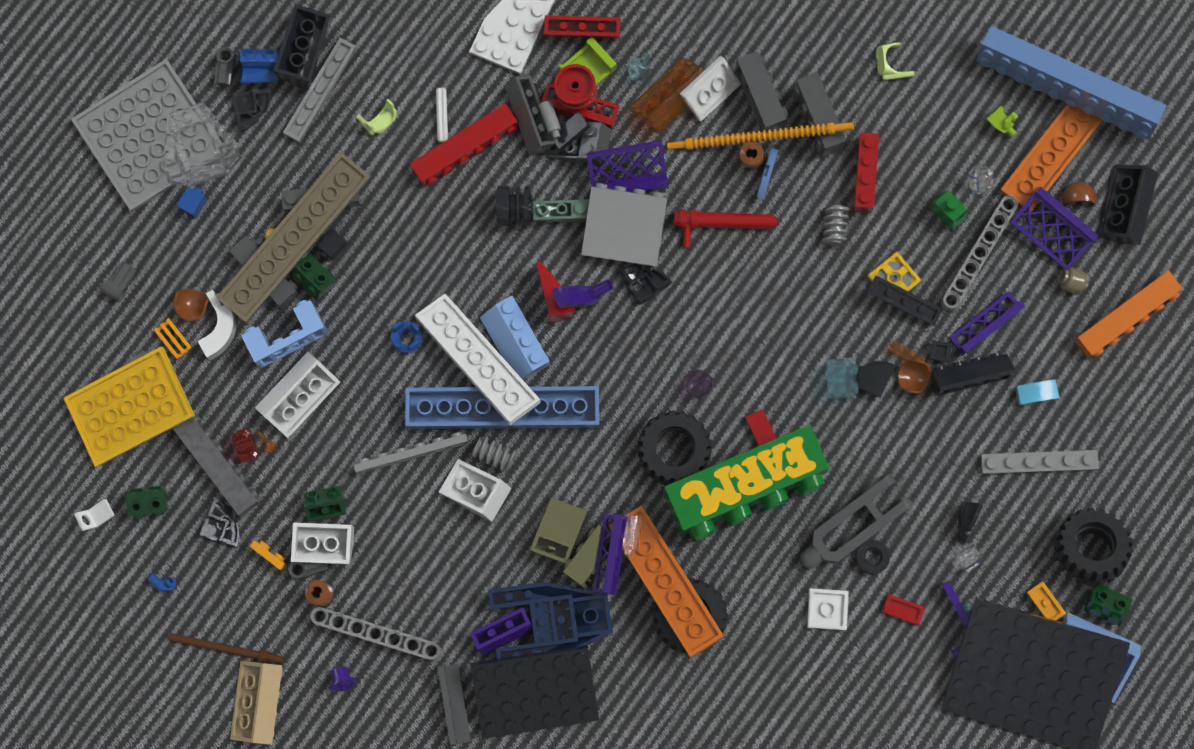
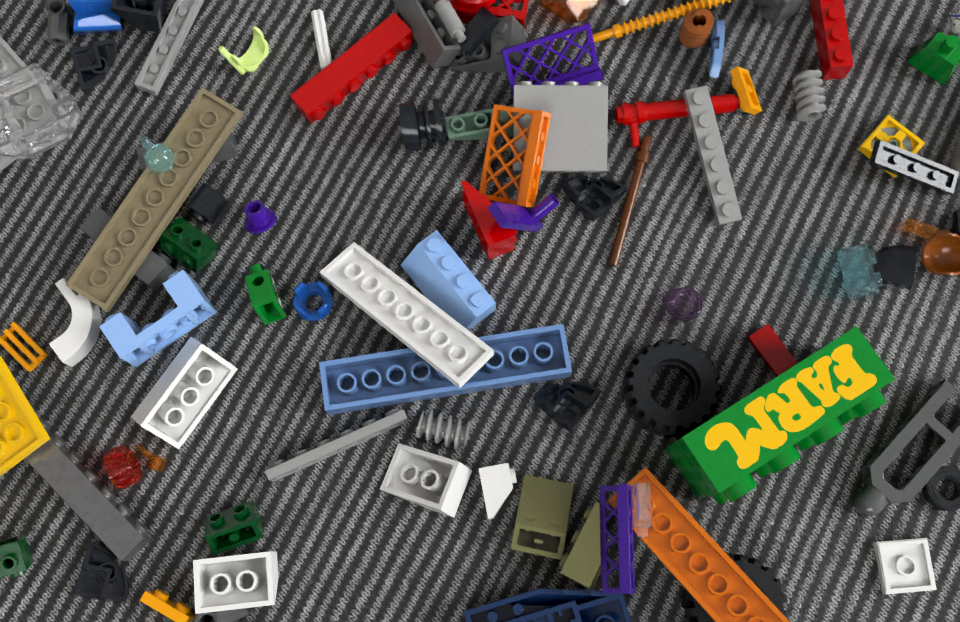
camera: 10 degrees left, 5 degrees down
(190, 304) = (37, 300): dark orange helmet -> none
(192, 201) = (31, 179): blue brick -> none
(301, 206) = (157, 156): none -> clear light blue piece
(369, 326) = (264, 295): none -> green torso
(371, 262) = (258, 217): none -> dark purple piece
(528, 503) = (496, 486): none -> white slope
(593, 448) = (567, 403): none -> black brick
(595, 252) = (533, 155): none -> orange fence
(688, 259) = (641, 160): none -> reddish brown bar
(745, 265) = (712, 155): none -> light grey plate
(785, 213) = (744, 86): none -> light orange plate

